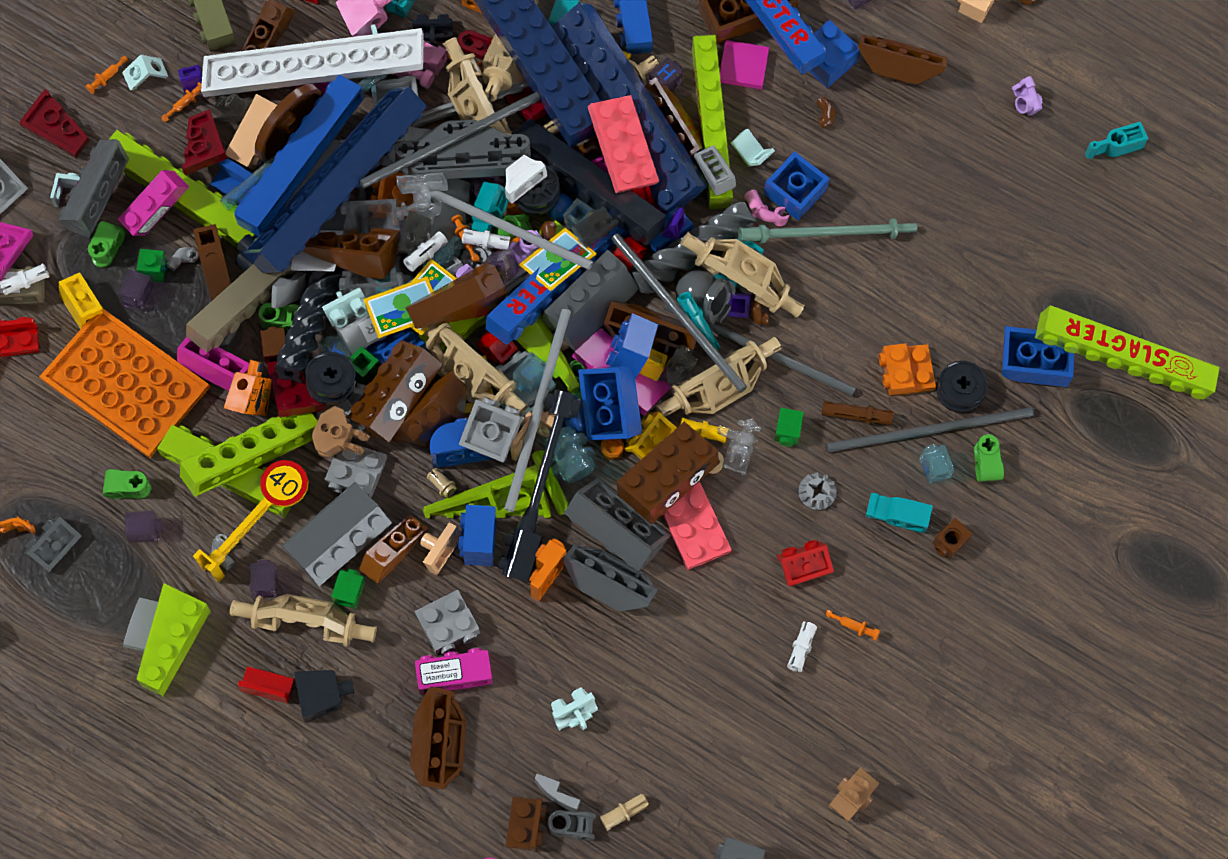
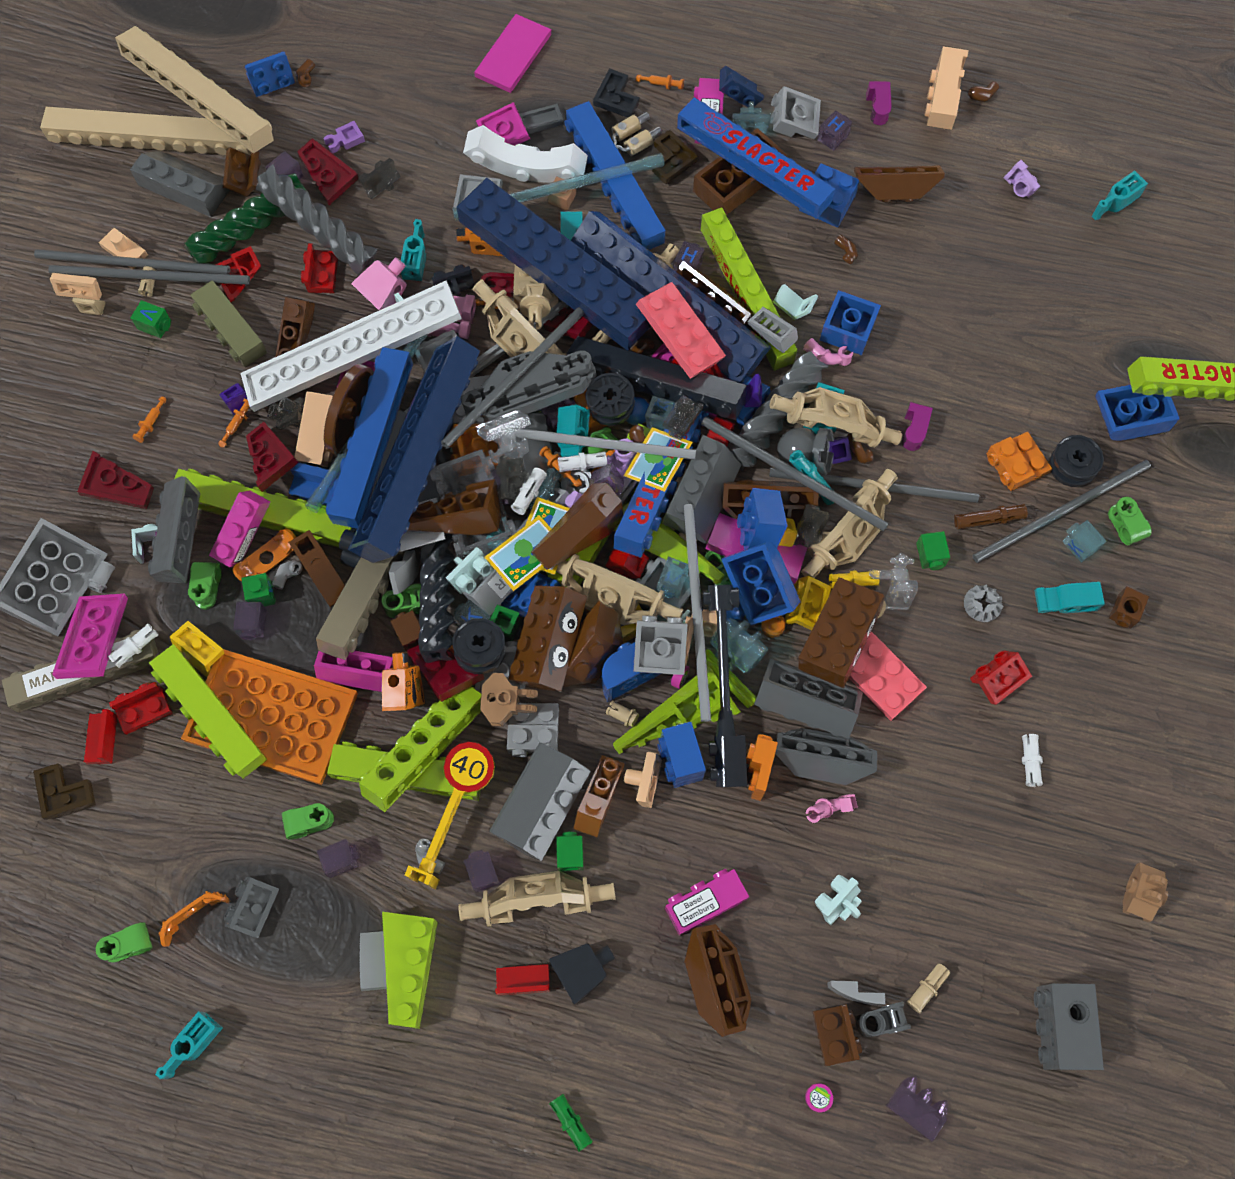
camera: 15 degrees left, 0 degrees up
(15, 208) = (101, 577): none -> light grey pin
(70, 360) = (207, 711): none -> lime brick
(141, 69) = (183, 404): light aqua bracket -> none
(182, 229) = (278, 546): none -> orange piece
(264, 816) = (570, 1122): none -> green pin
(447, 623) = (681, 853): light grey plate -> none
(507, 467) = (678, 680): none -> dark pink tile
(523, 176) = (598, 389): white slope -> none
(594, 626) = (824, 808): none -> bright pink piece
(743, 64) = (755, 228): dark pink tile -> none
(763, 233) = (839, 375): sand green bar -> none
(819, 311) = (919, 421): none -> magenta leg
(854, 625) = (1078, 723): orange piece -> none

